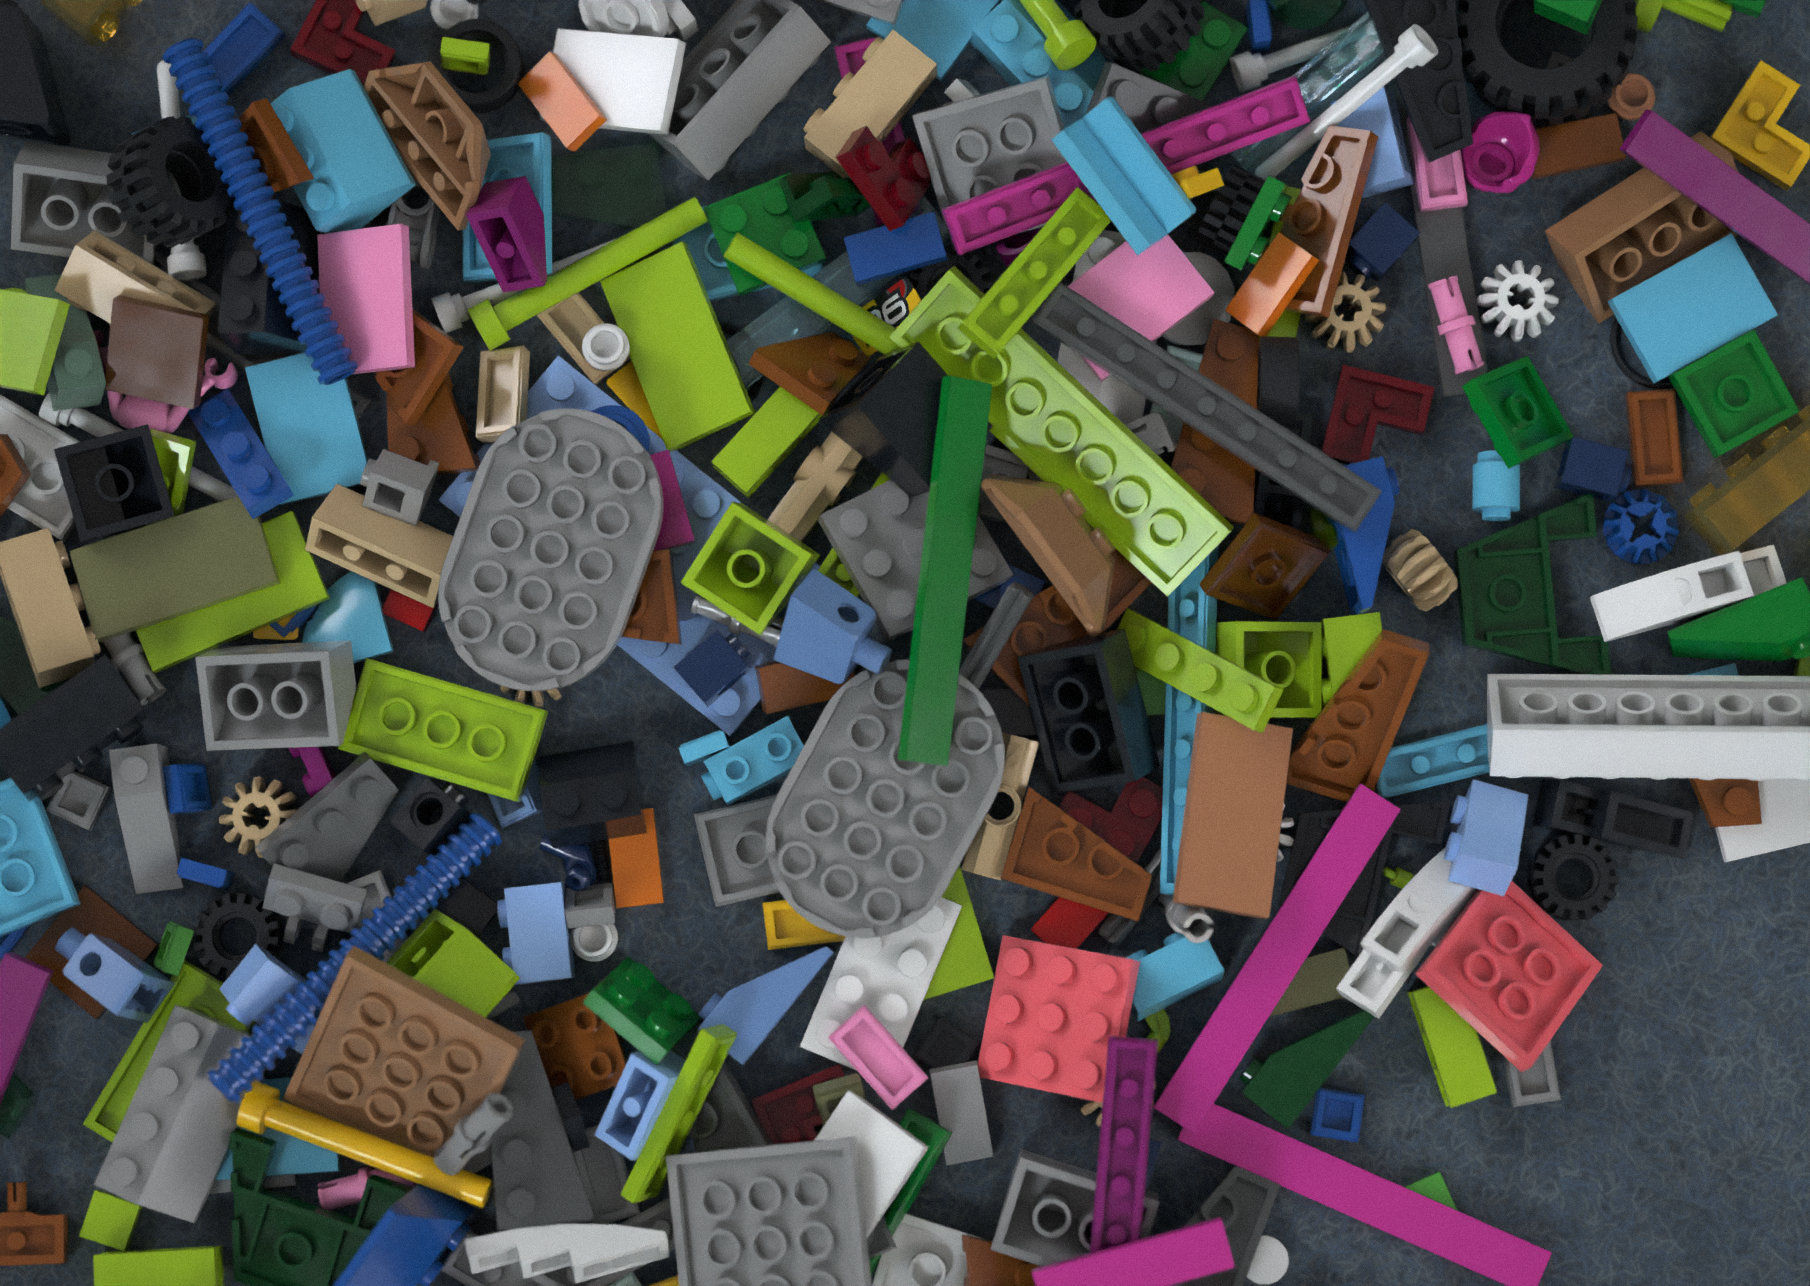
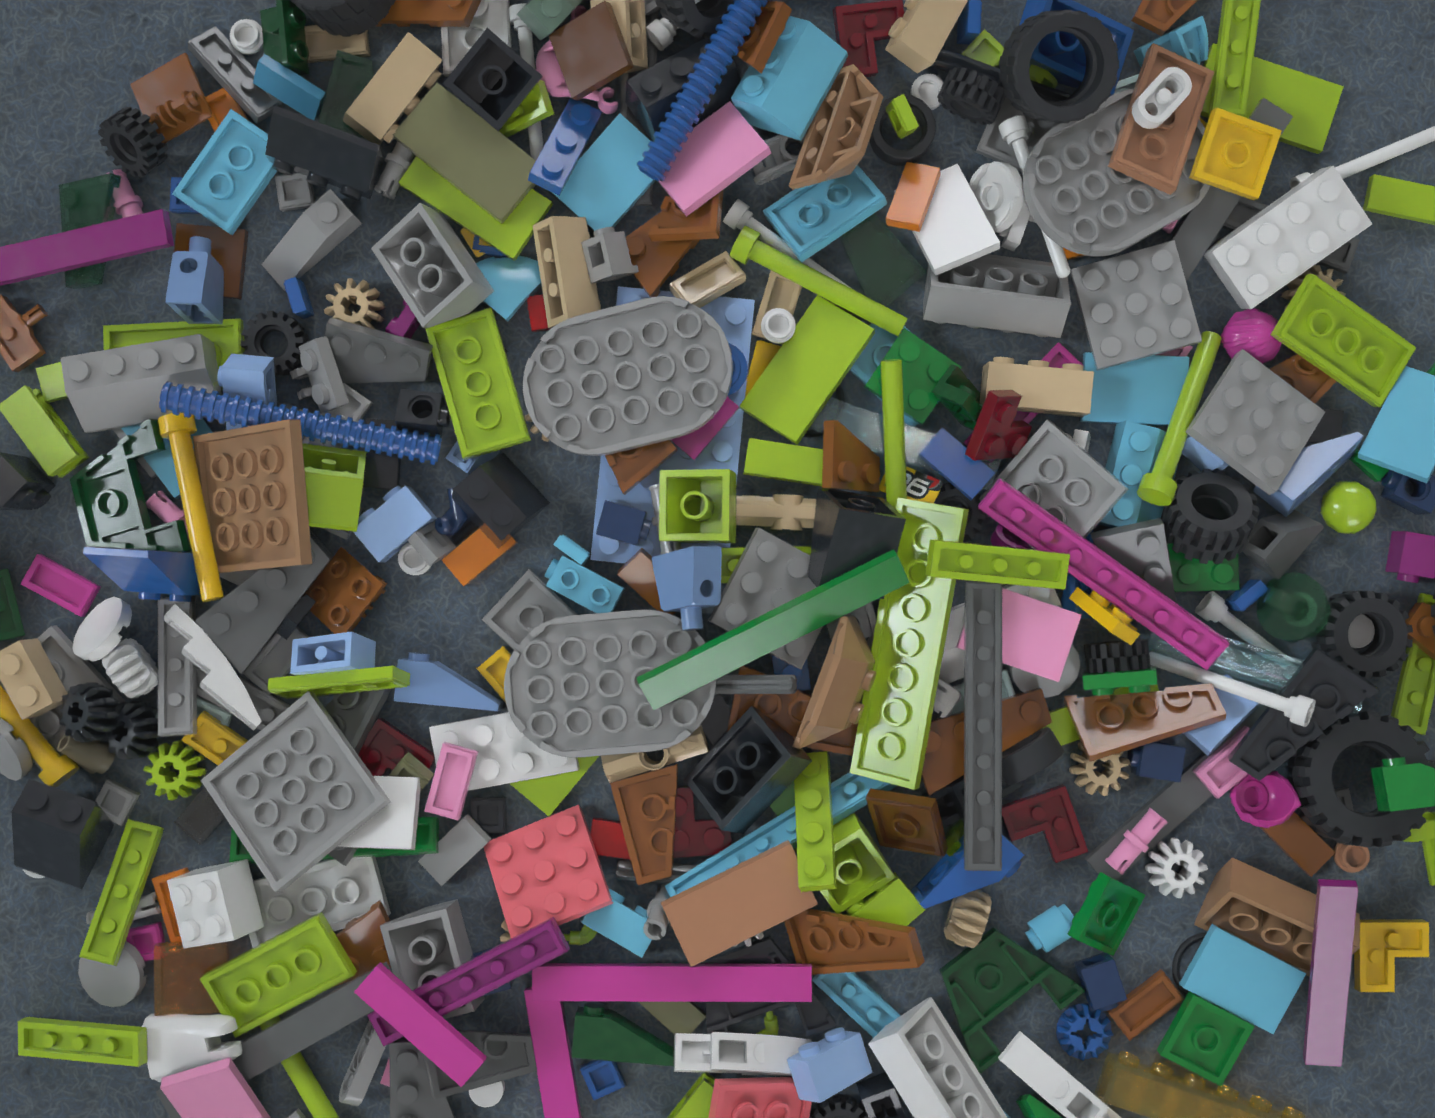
camera: 55 degrees right, 5 degrees up
(173, 948) = (241, 309): bright green tile -> none
(187, 788) = (342, 252): blue tile -> none
(473, 1133) = (238, 568): light grey pin -> none
(511, 233) = (809, 219): magenta slope -> none
(642, 1009) = (386, 618): green plate -> none
(1124, 175) = (1097, 580): medium azure panel -> none
(1271, 285) = (1086, 713): orange tile -> none

